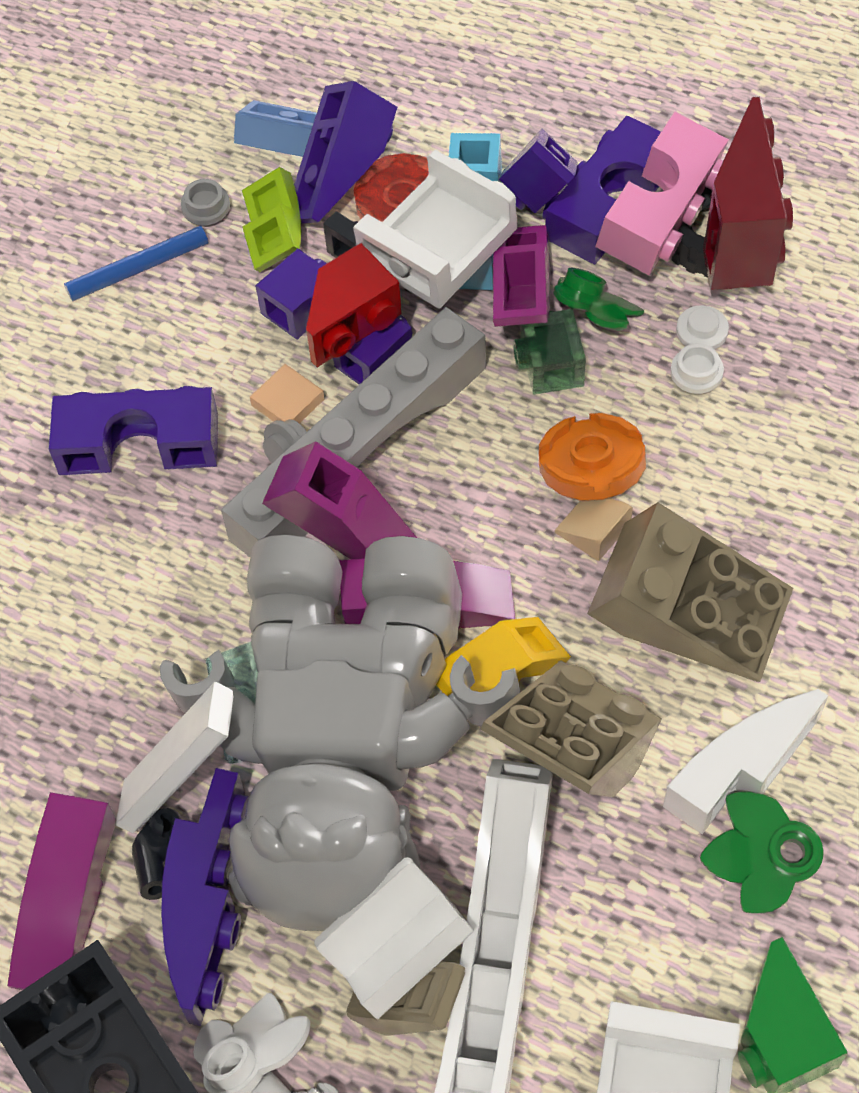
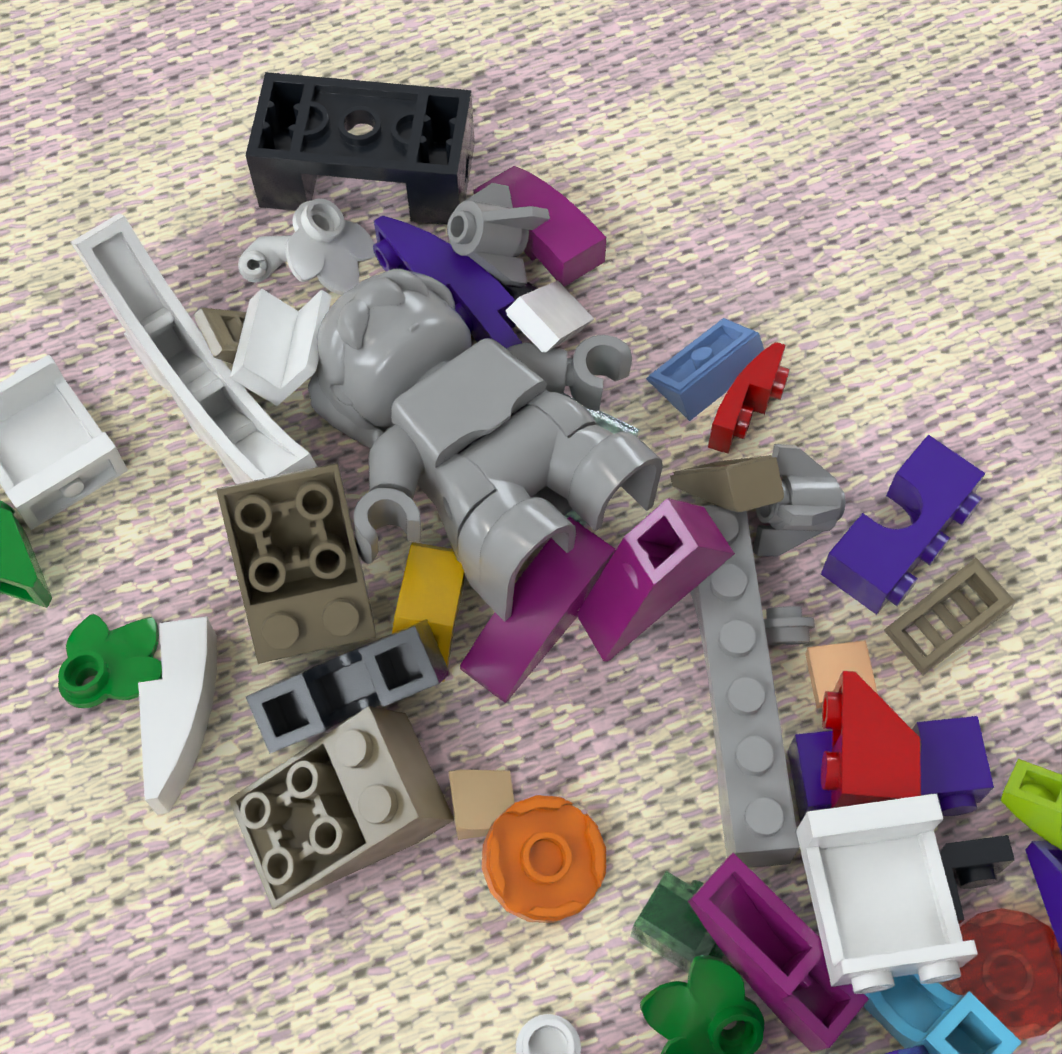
camera: 130 degrees right, 5 degrees up
(88, 604) = (749, 393): none -> red slope
(97, 664) = (706, 367): none -> medium blue slope
(118, 889) = (494, 232): none -> light grey brick
(149, 376) = (983, 585): none -> dark tan slope
(176, 502) = (809, 504): none -> light grey brick
(221, 509) = (734, 483): none -> dark tan slope
(571, 626) = (347, 685): none -> black arch

